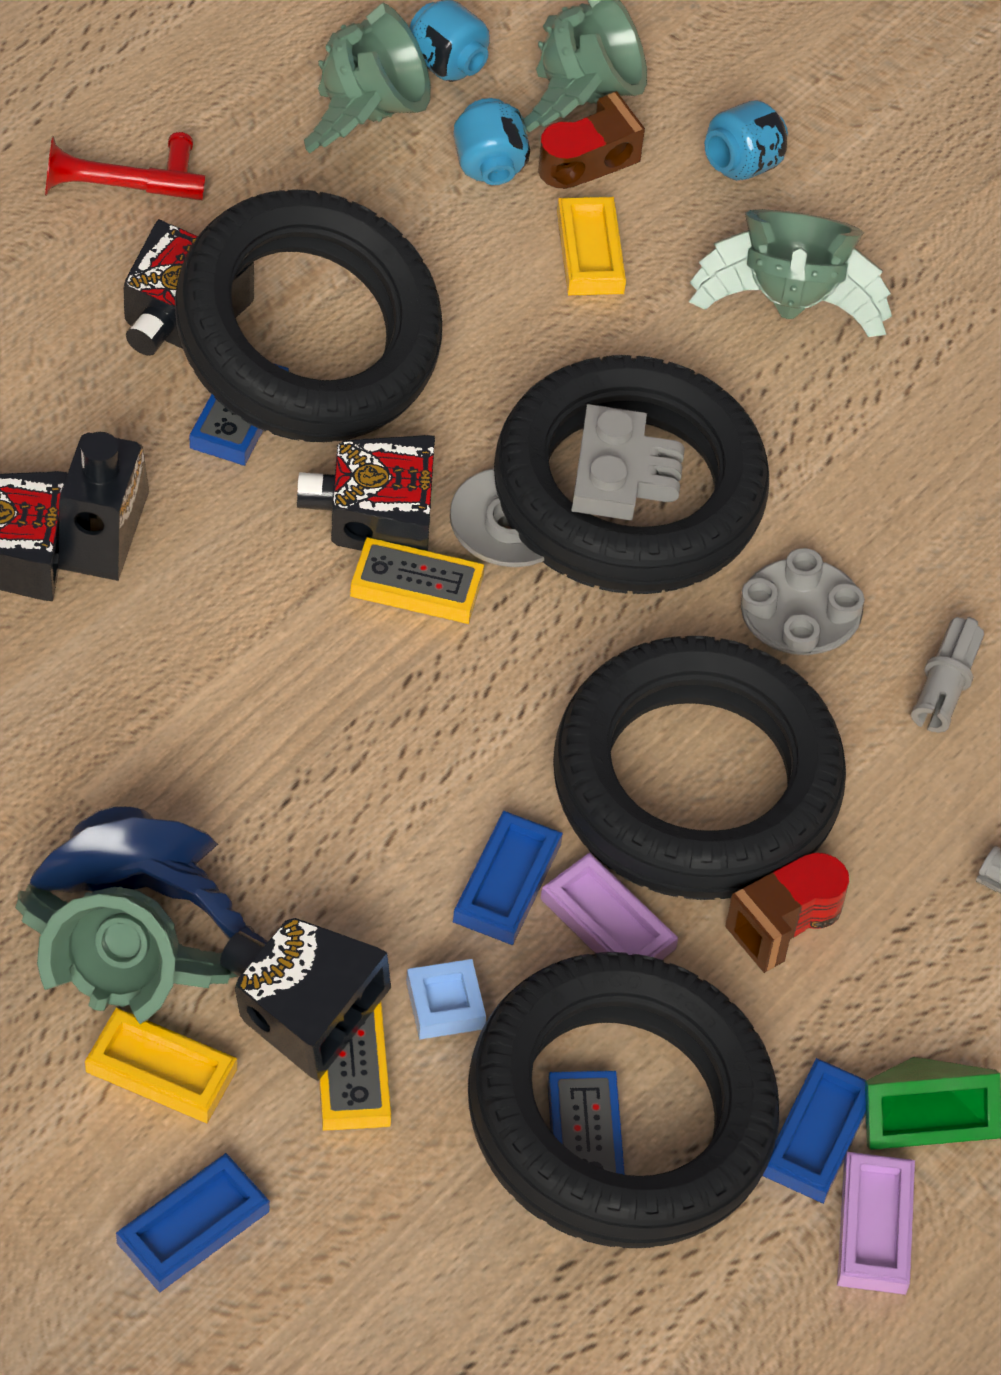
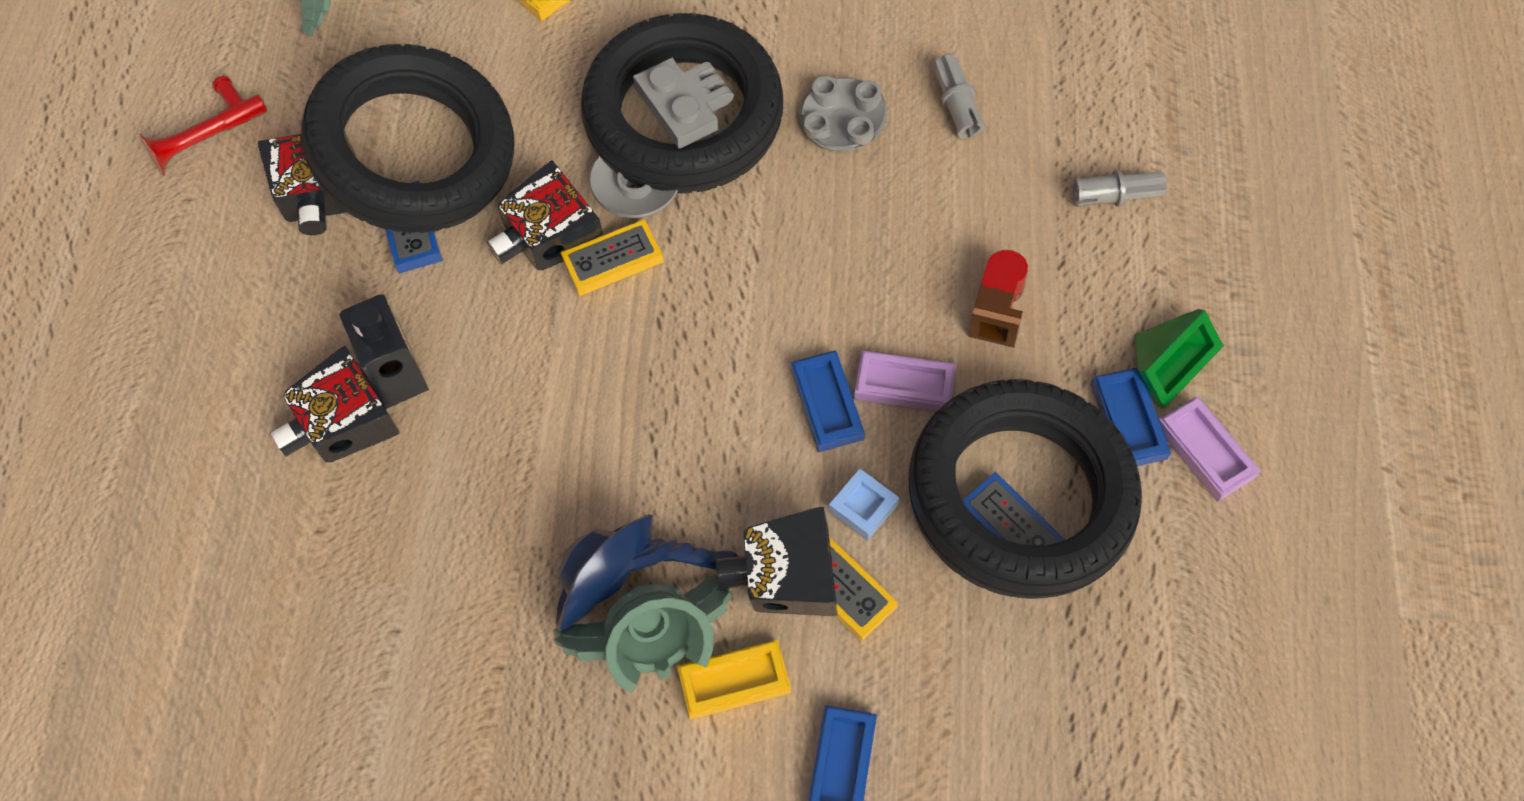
camera: 30 degrees left, 10 degrees up
(718, 675) = (890, 182): black tyre -> none

